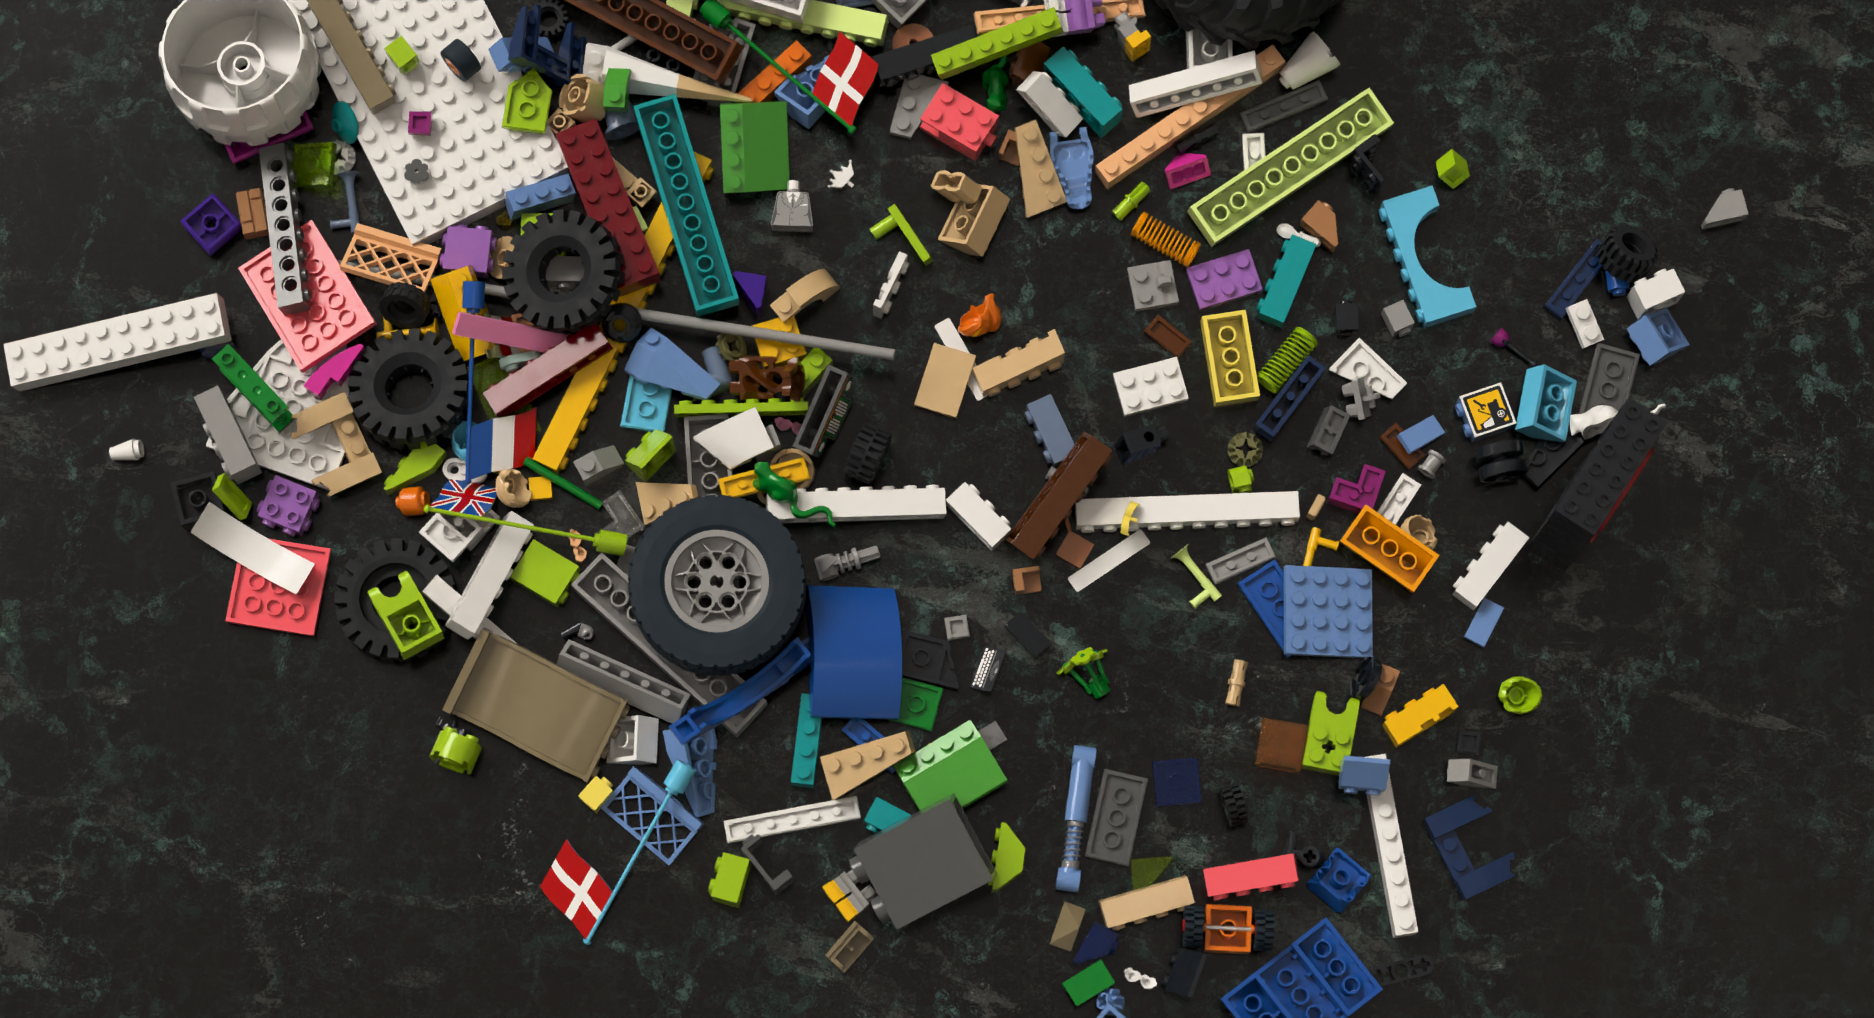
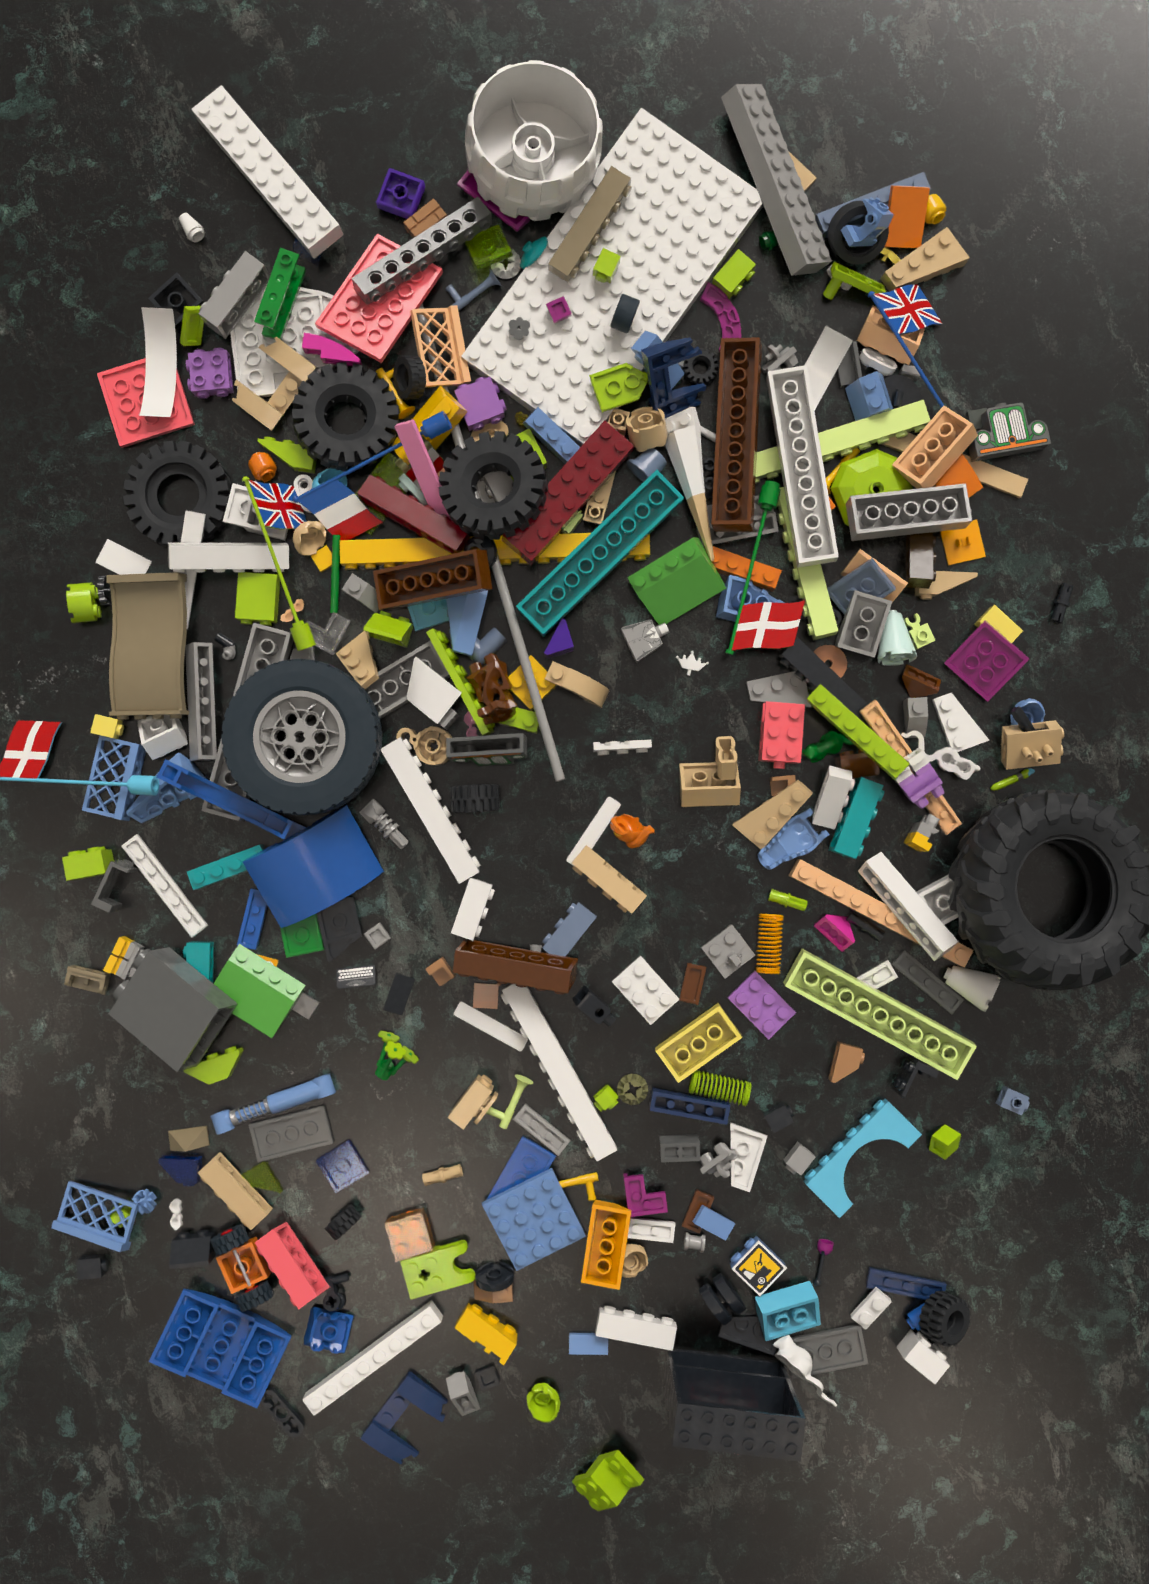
camera: 60 degrees right, 10 degrees up
(403, 611) = (160, 502): lime brick -> none
(430, 695) = (122, 560): none -> white sticker
(617, 90) = (665, 449): bright green slope -> none
(624, 382) = (432, 579): none -> reddish brown brick
(738, 346) = (504, 655): olive gear -> none
(742, 484) = (411, 728): yellow tile -> none
(784, 491) = (407, 750): green animal -> none
(858, 764) = (230, 919): tan wedge -> none
(895, 219) = (678, 723): lime piece -> none
(945, 380) = (568, 827): tan tile -> none
(1088, 983) = (149, 1177): green panel -> none
(1127, 518) = (527, 1027): light yellow piece -> none
(1177, 609) = (474, 1102): none -> tan brick
(1286, 280) = (785, 1055): teal brick -> none
(1287, 230) = (826, 1037): white piece -> none
(1315, 508) = (613, 1168): tan tile -> none
(1363, 775) = (411, 1318): medium blue slope -> none
(1444, 82) = (1013, 1100): none -> sand blue brick
(1630, 668) = (607, 1480): none -> lime bracket
(1657, 336) = (888, 1372): medium blue slope -> none
(1727, 209) = (1024, 1376): light grey slope -> none

